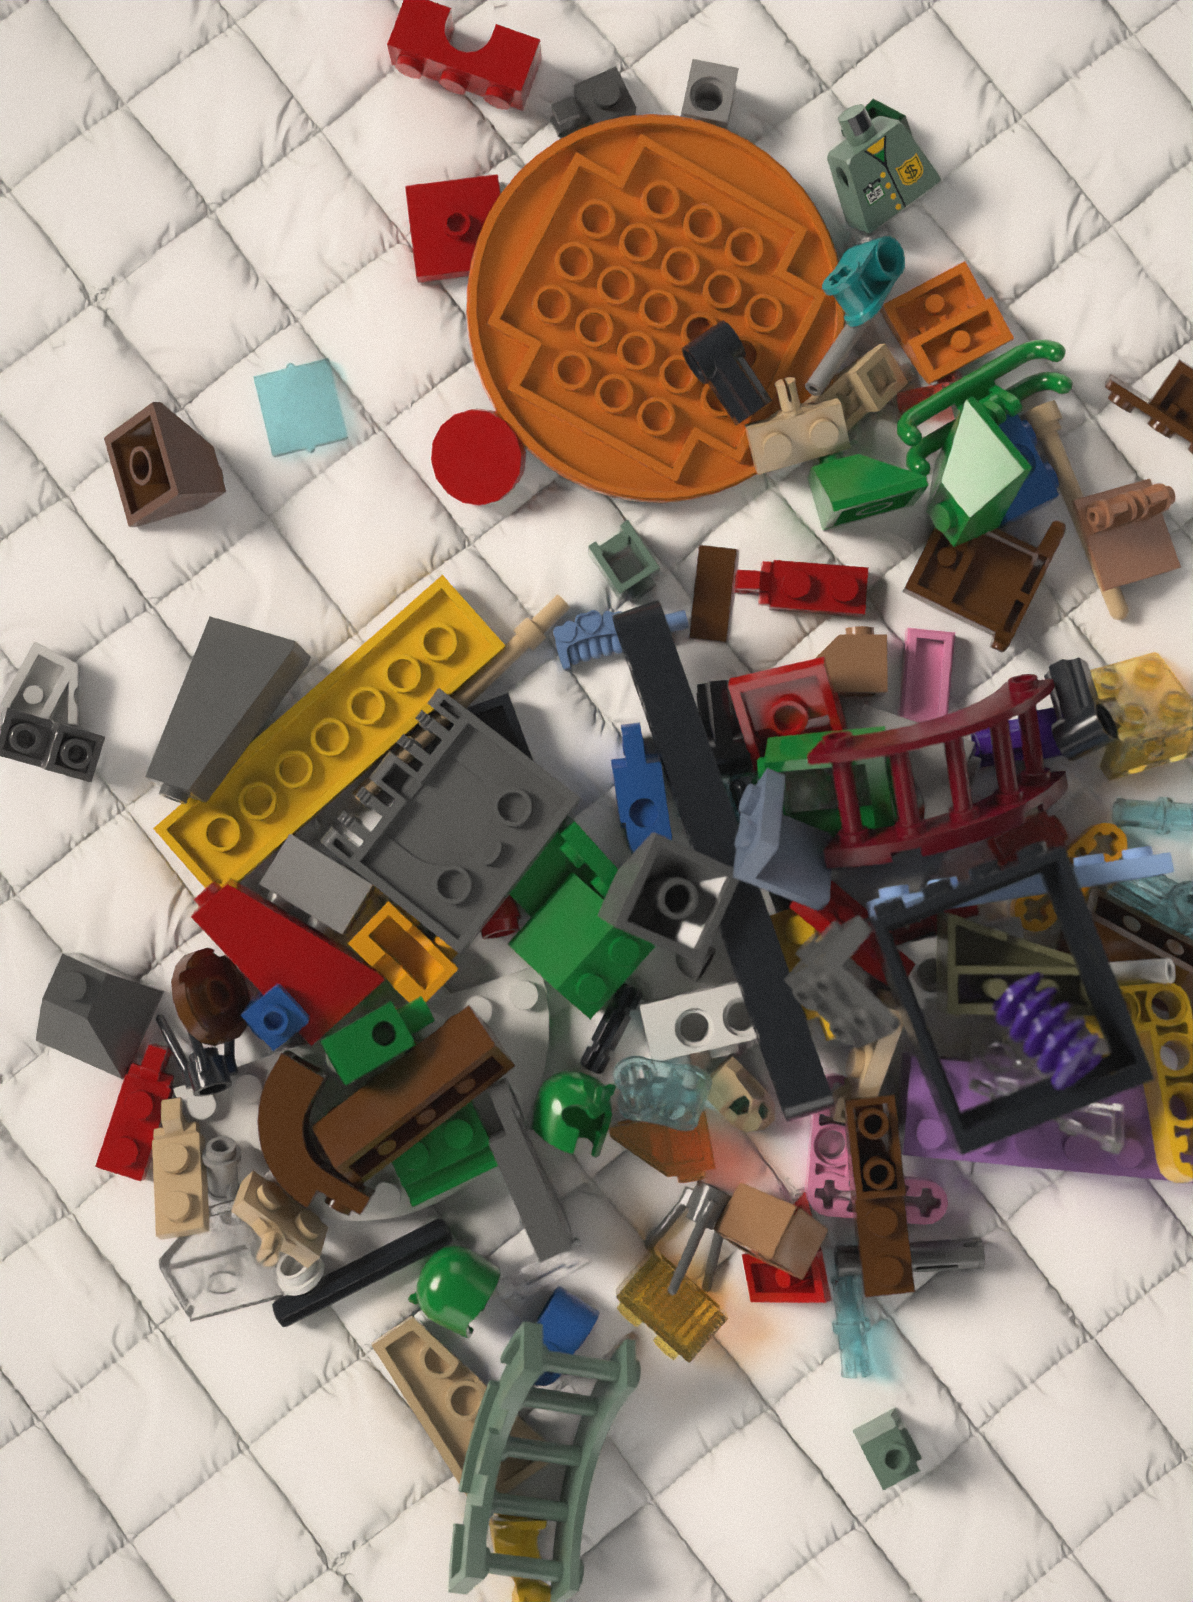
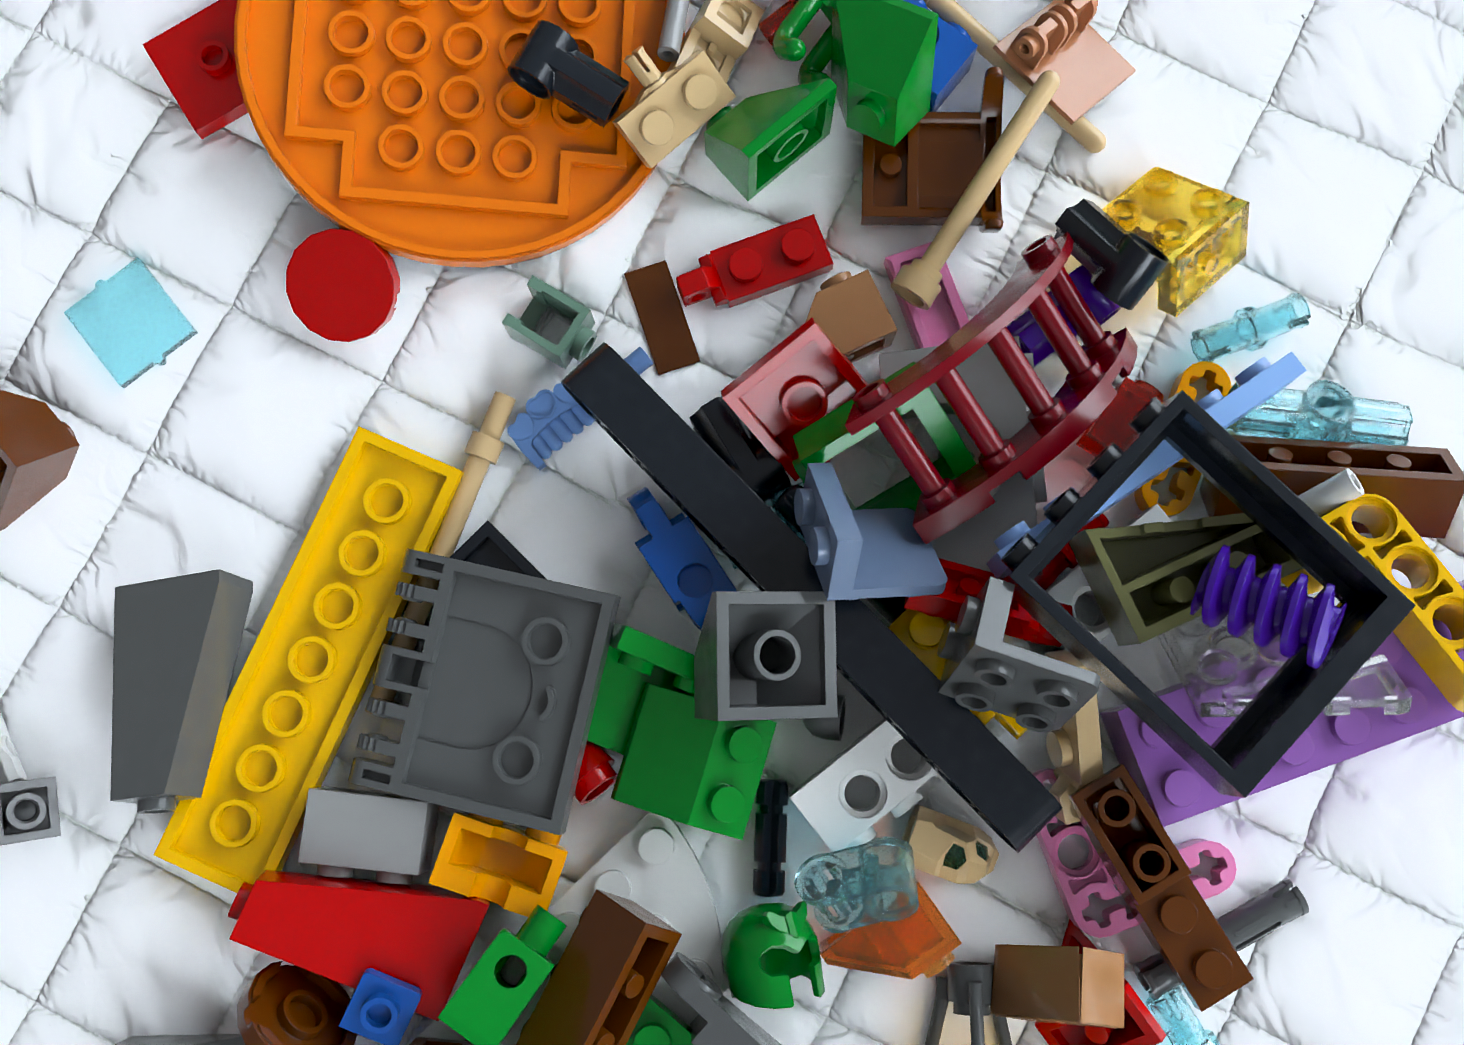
camera: 25 degrees left, 5 degrees down
(926, 659) = (920, 280): none -> tan piece

